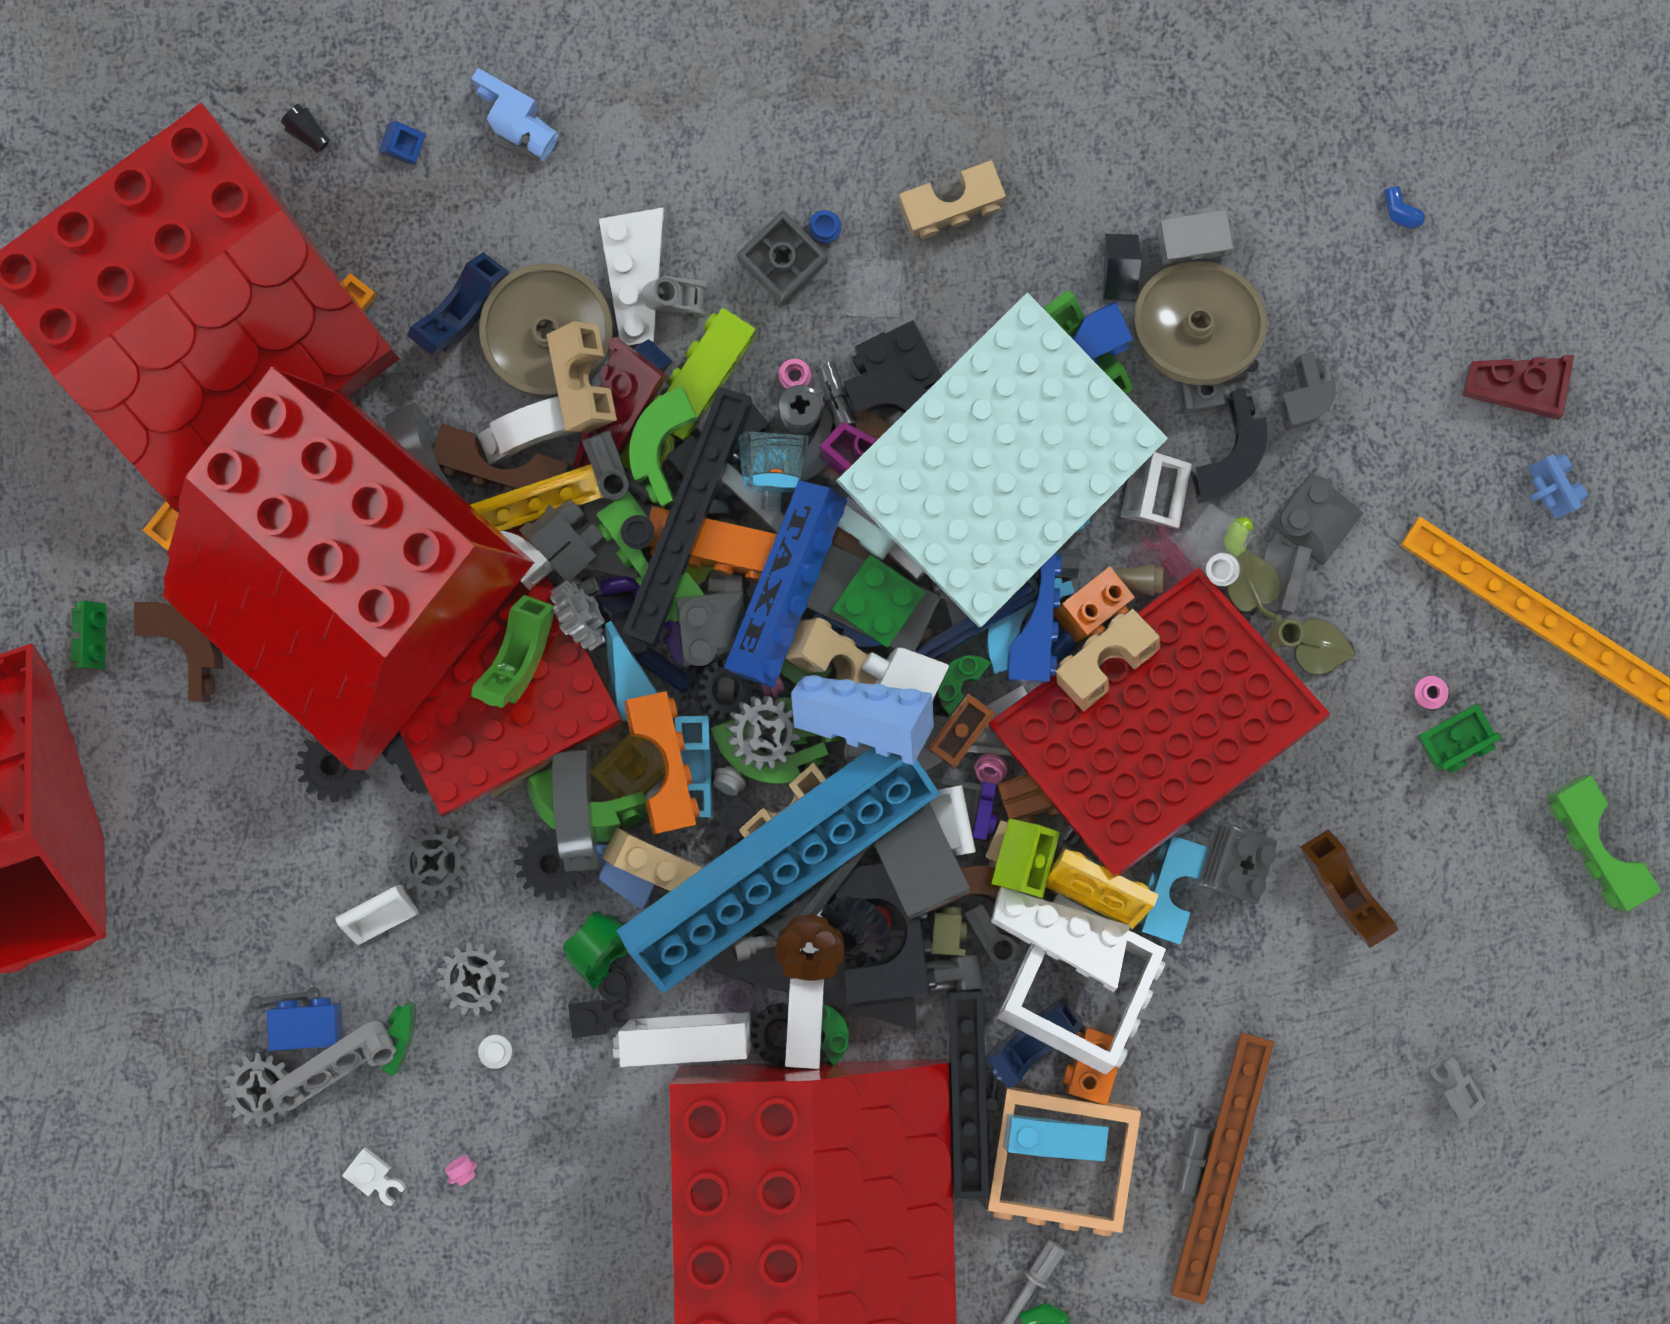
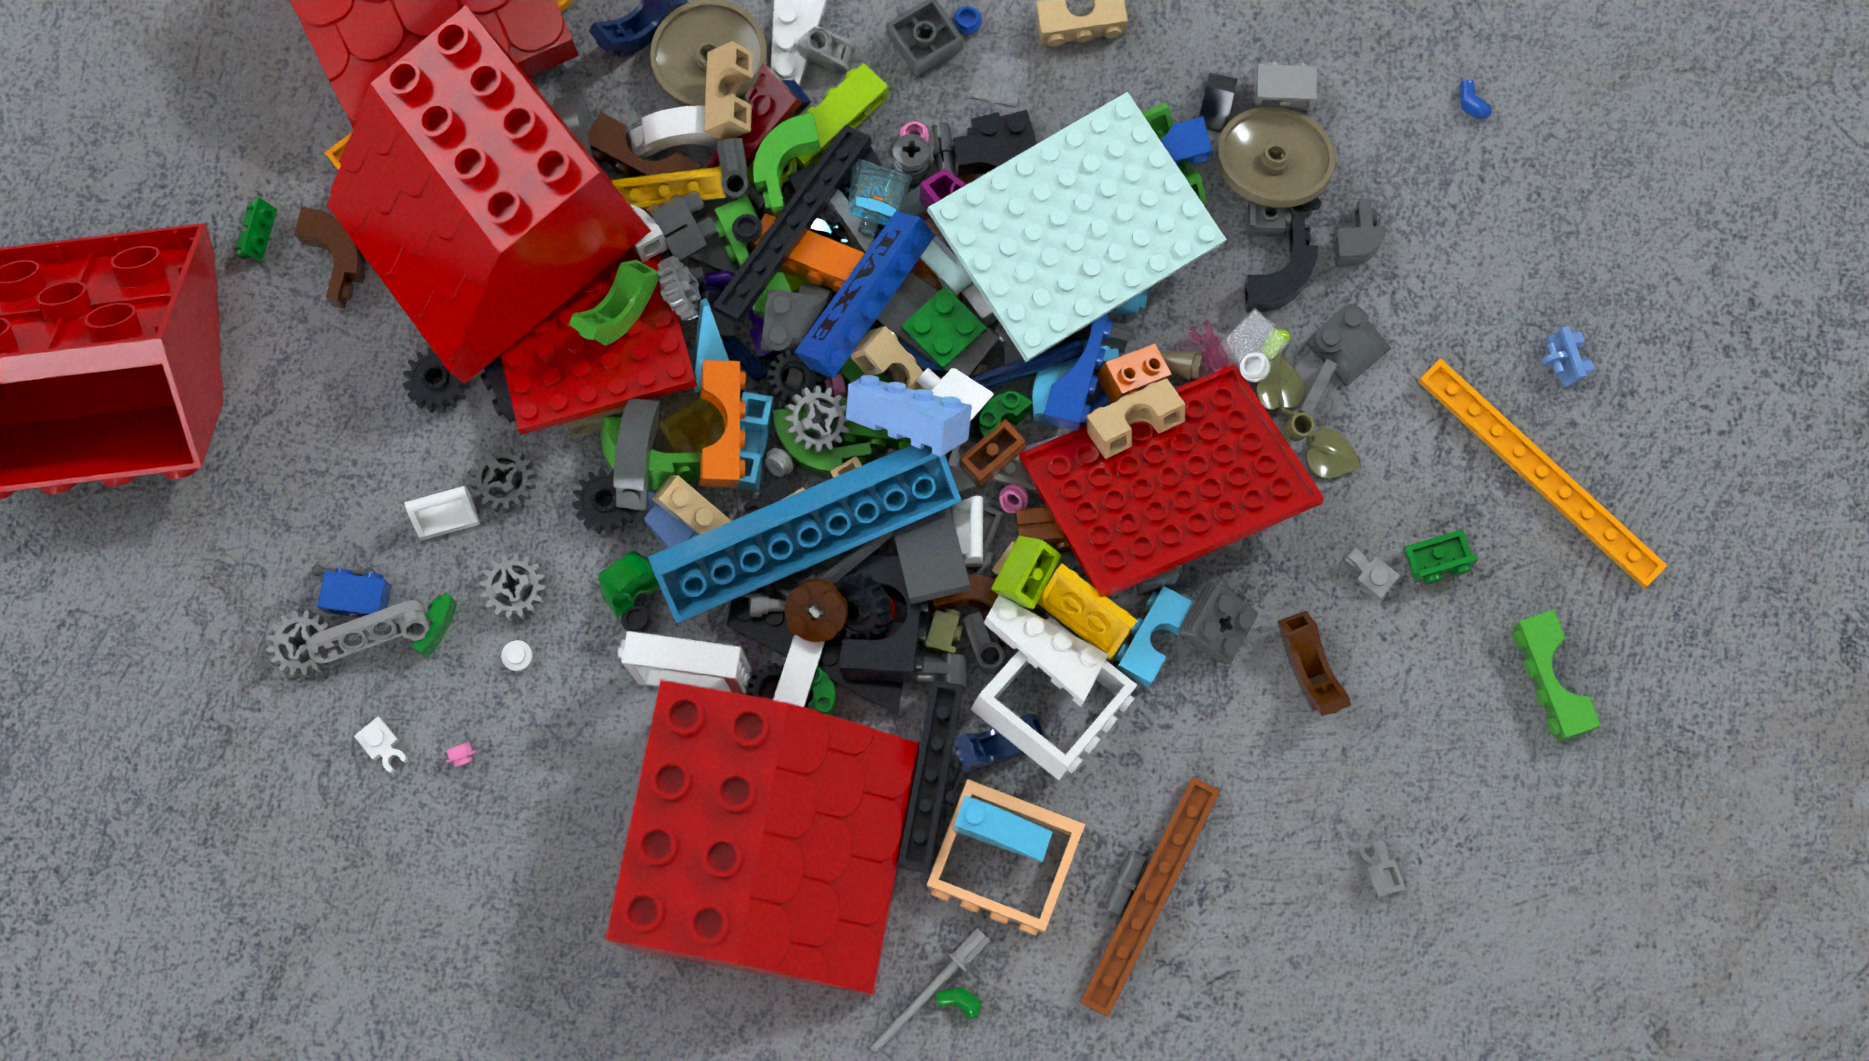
camera: 15 degrees right, 10 degrees down
(591, 1018) = (605, 644): black plate -> none
(985, 822) = (998, 540): dark purple plate -> none
(1086, 1081) = (1044, 789): orange brick -> none
(1142, 491) = (1198, 285): white tile -> none
(1391, 770) = (1374, 575): none -> light grey plate
(1421, 696) = (1419, 521): bright pink plate -> none
(1524, 385) = (1554, 267): dark red wing -> none

